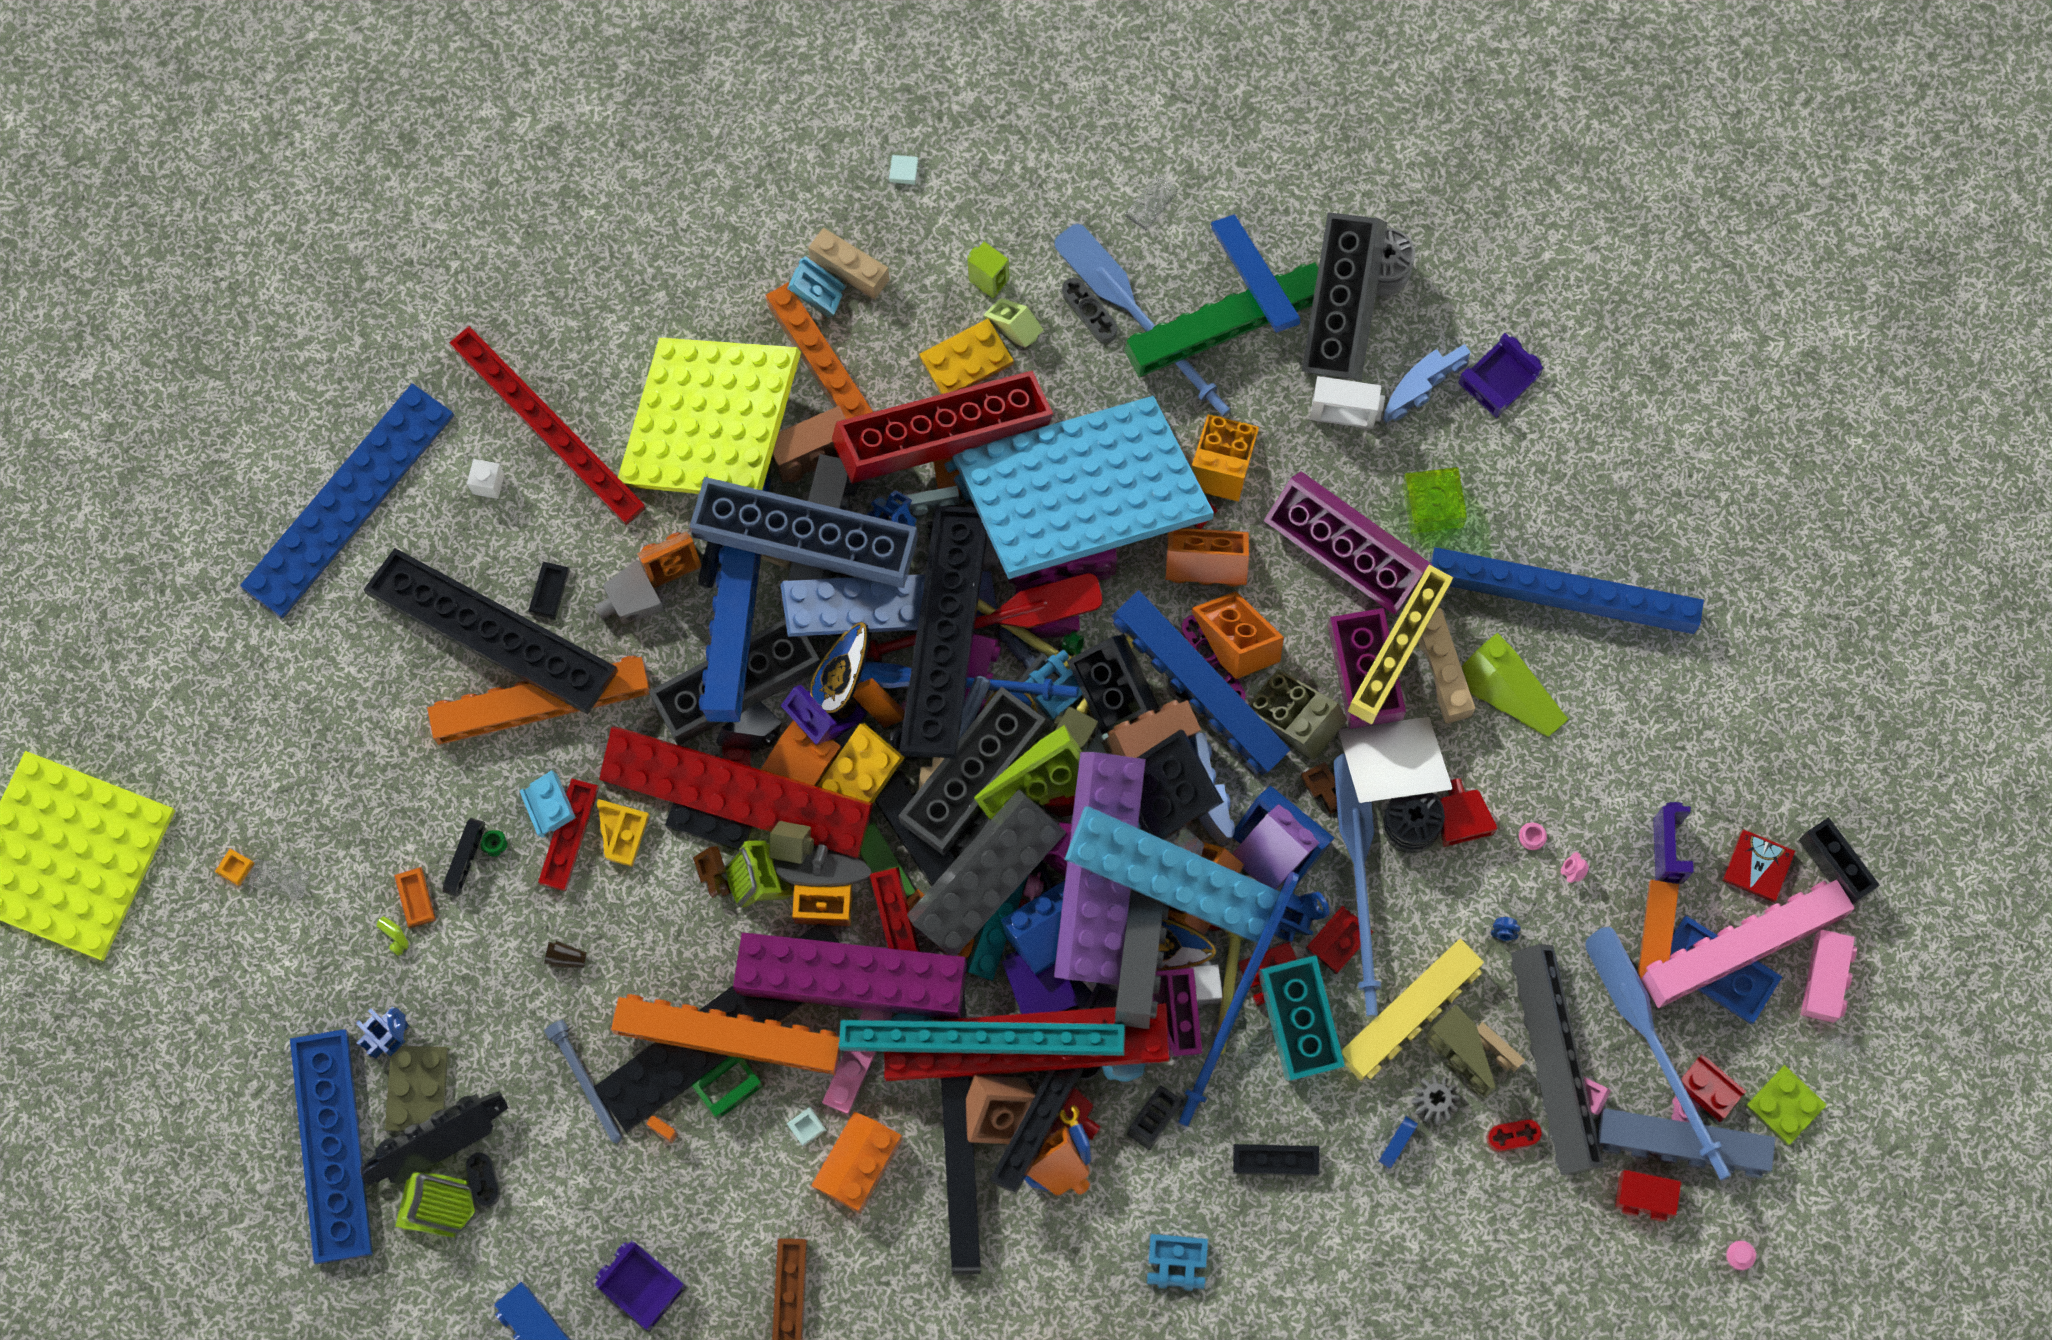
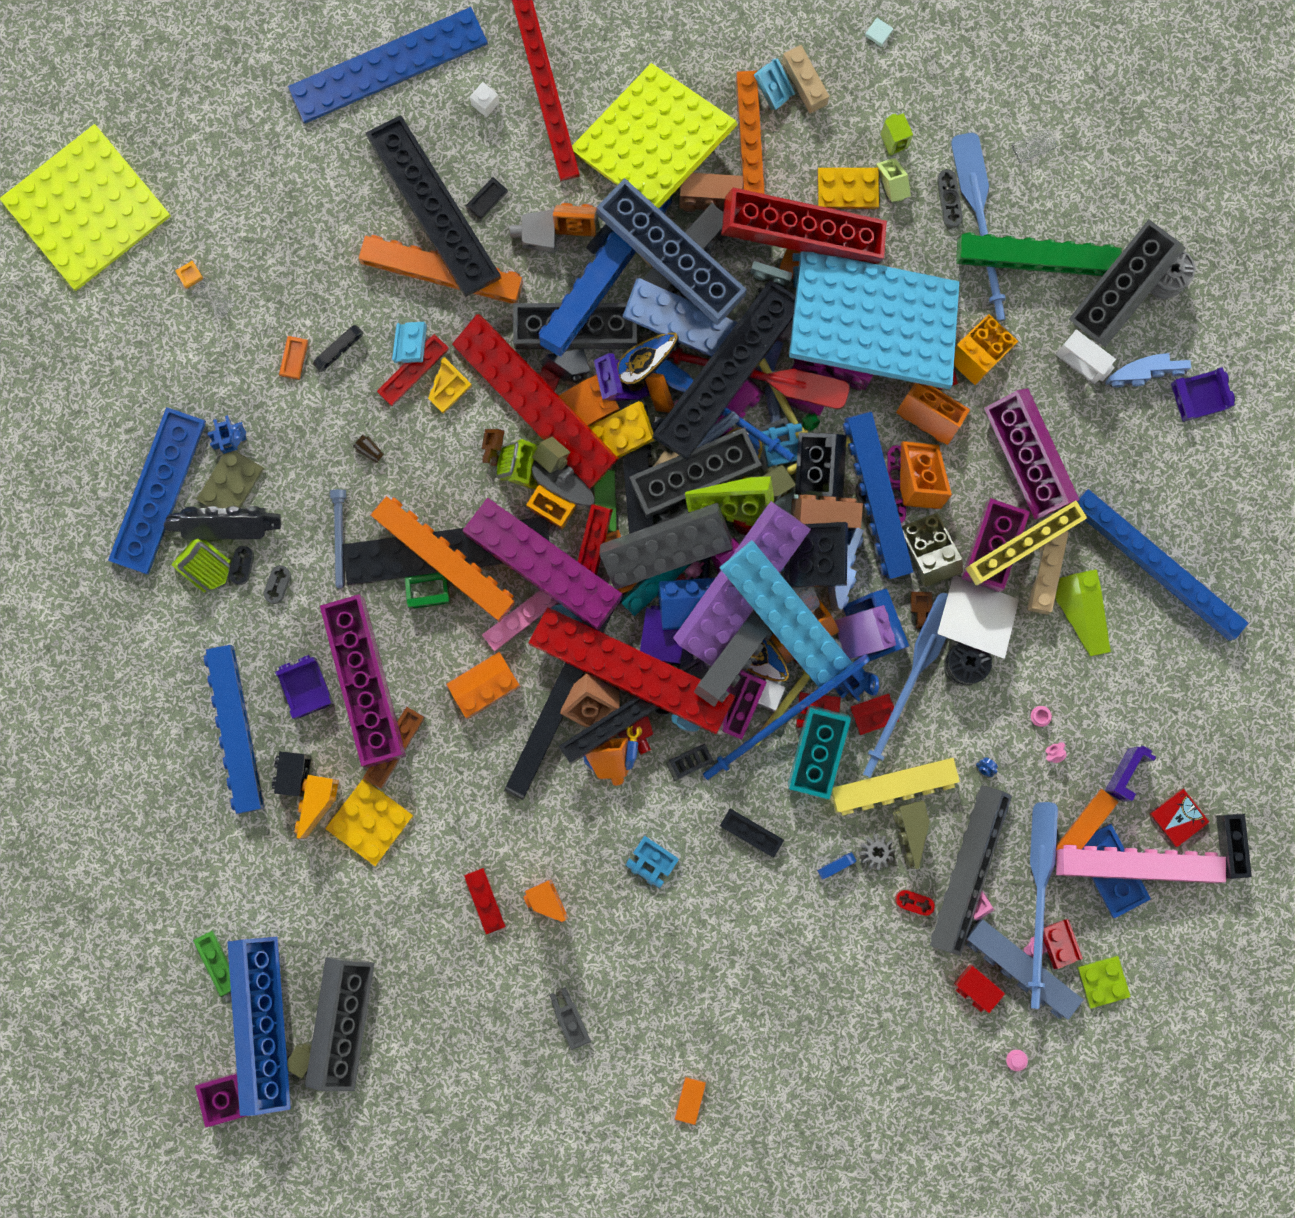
camera: 25 degrees right, 10 degrees up
(395, 932) = (268, 373): lime arm -> none
(488, 838) = (362, 344): green plate -> none
(532, 1179) = (272, 582): none -> dark grey beam
(662, 1128) = (371, 596): orange tile -> none
(708, 826) = (505, 414): black plate -> none
(708, 1236) = (362, 681): none -> magenta brick
(806, 1127) = (463, 645): light aqua tile -> none
(897, 512) = (738, 264): blue piece -> none
(982, 1037) = (604, 652): teal plate -> none
(1255, 273) = (1076, 234): blue tile -> none
(1434, 500) = (1107, 456): clear neon green brick -> none
(1465, 816) = (1004, 678): red torso -> none
(1506, 1055) = (939, 850): tan plate -> none
(1828, 976) = (1182, 915): bright pink brick -> none

